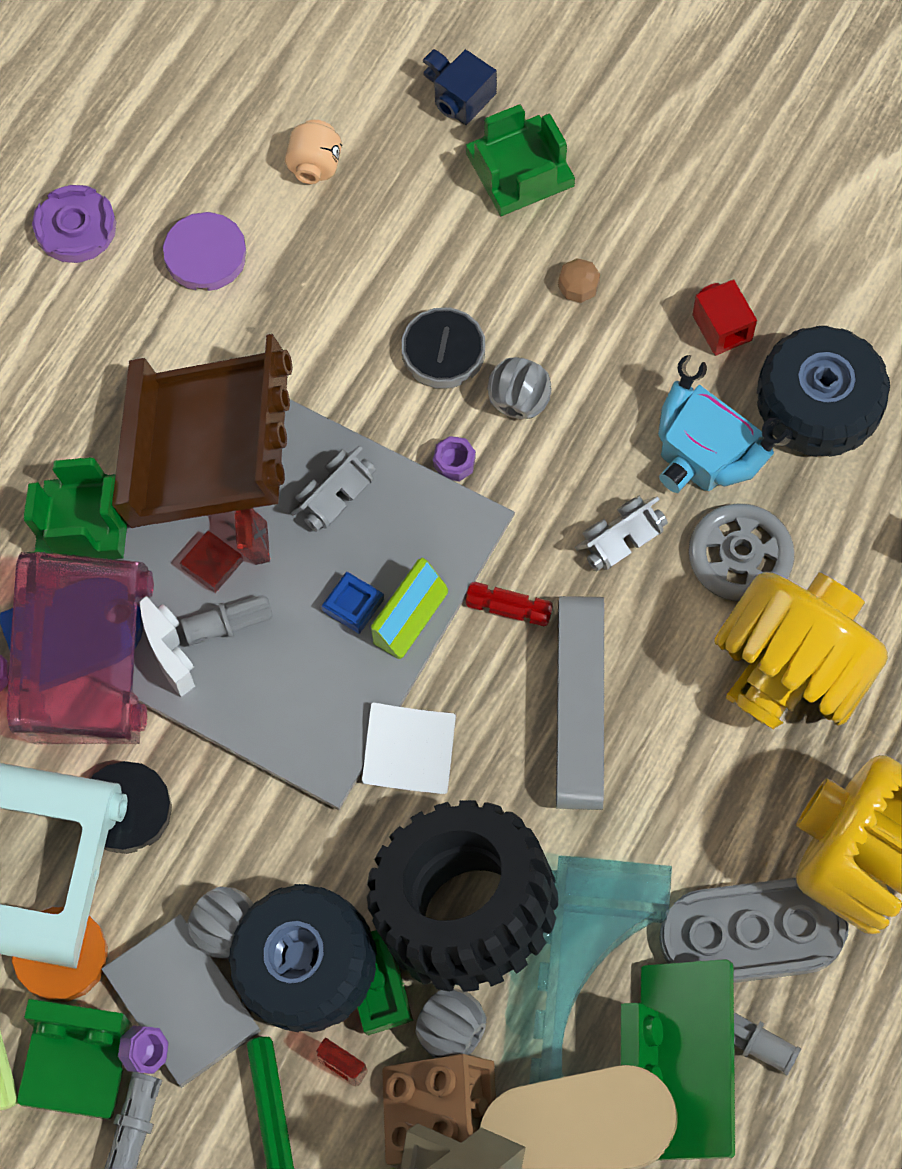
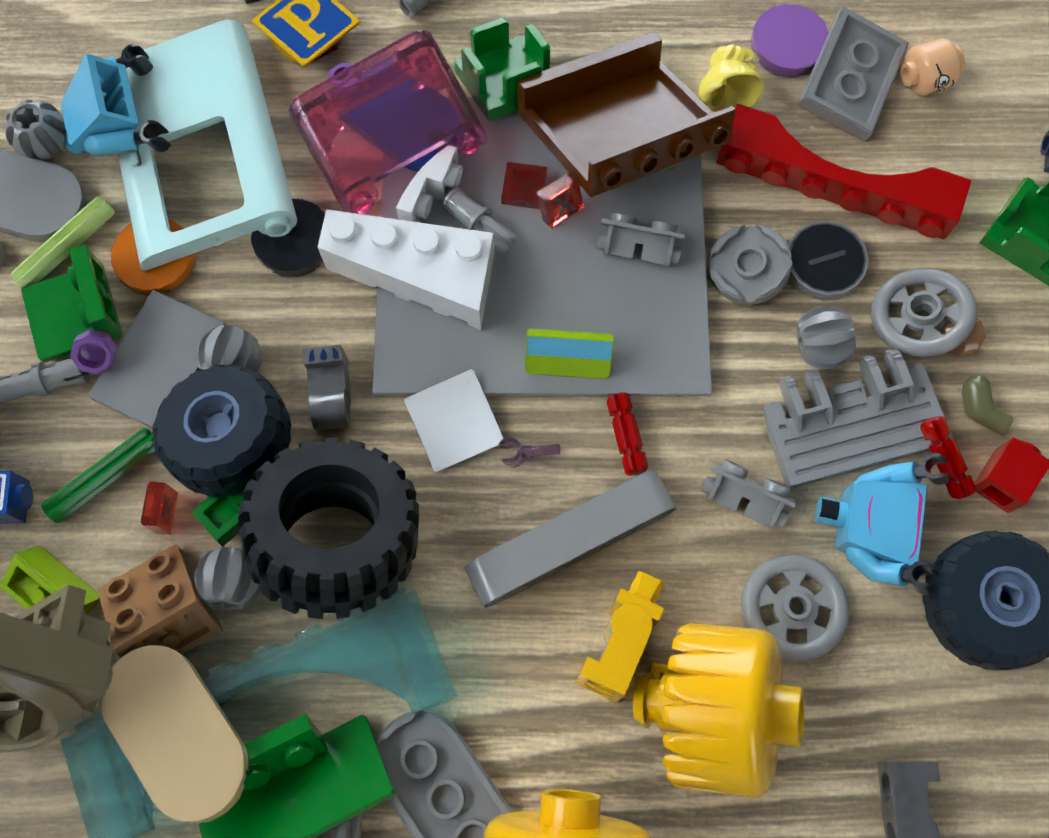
camera: 60 degrees right, 5 degrees up
(222, 324) = (731, 79): none -> light yellow hair
(238, 694) = (413, 260): none -> white wedge
(276, 218) = (853, 73): none -> light grey tile
(310, 846) = (328, 387): none -> flat silver leg
(353, 602) = (551, 308): blue tile -> none
(410, 411) = (750, 264): none -> light grey tile
(439, 236) = (919, 200): none -> red arch
(454, 458) = (729, 321): medium lavender tile -> none
(475, 698) = (526, 451): none -> clear purple hand
(522, 272) = (936, 283): none -> light grey plate
(611, 416) = (847, 427): none -> light grey hinge
(649, 304) = (980, 406): none -> olive arm
(670, 354) = (937, 430): none -> red axle
(699, 700) = (625, 636): none -> yellow hips

